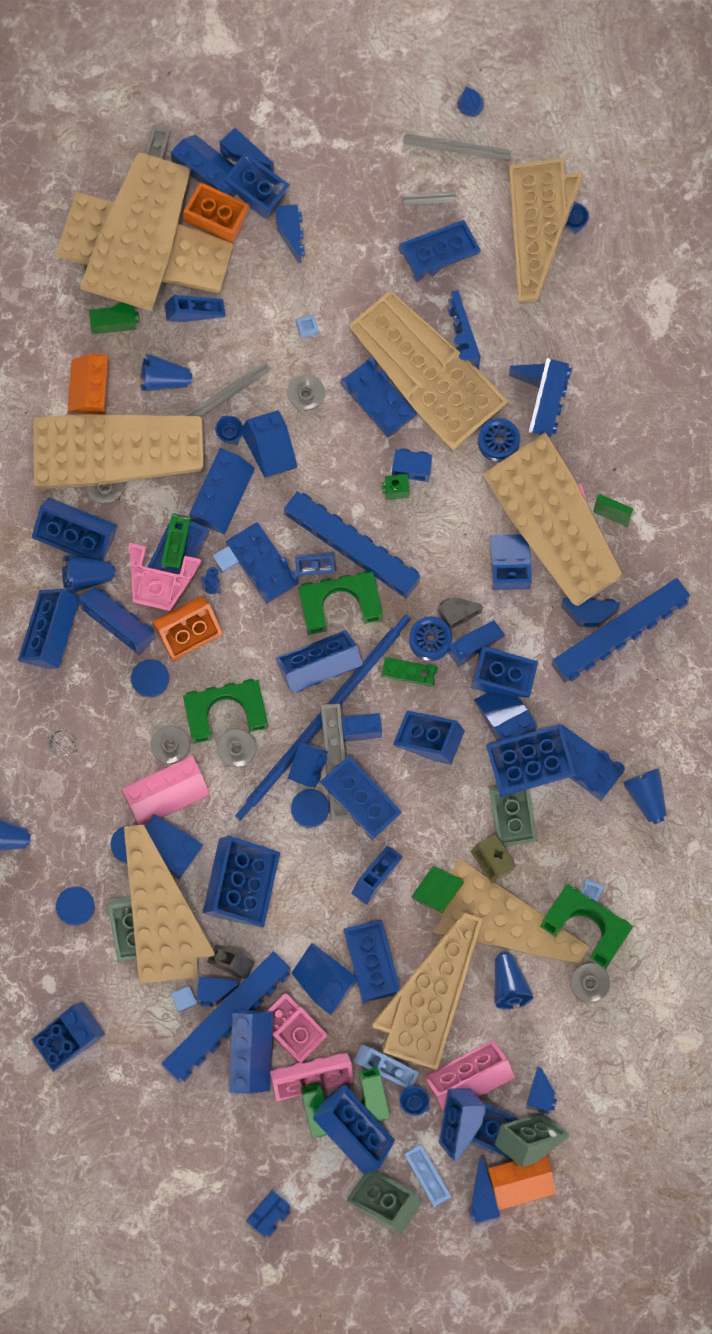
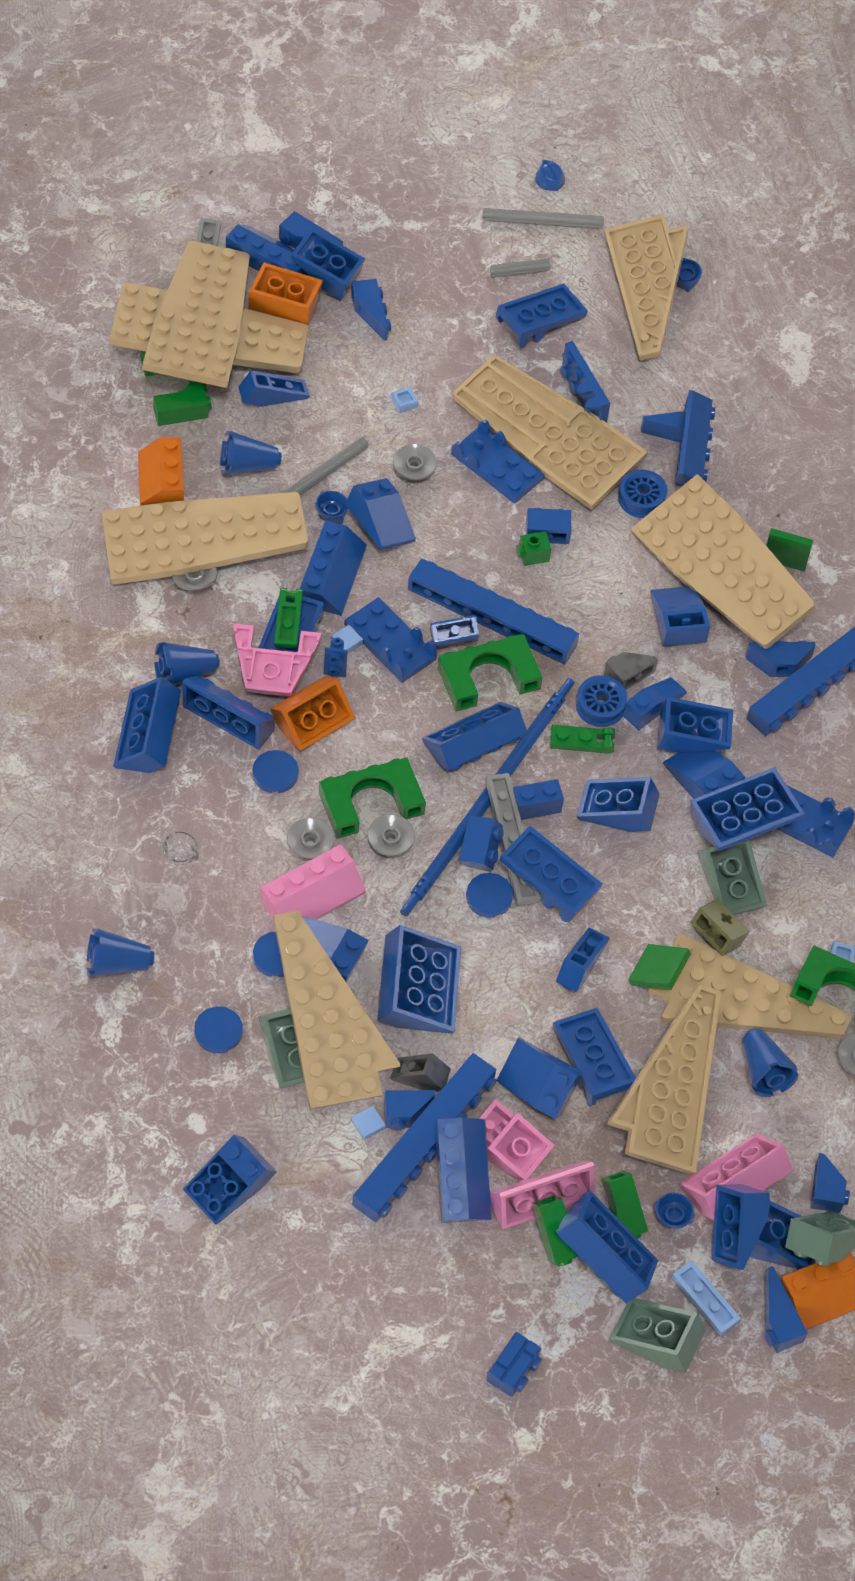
camera: 10 degrees left, 15 degrees down
(73, 530) = (158, 619): blue slope -> none
(387, 1066) = (646, 1178): light blue slope -> none

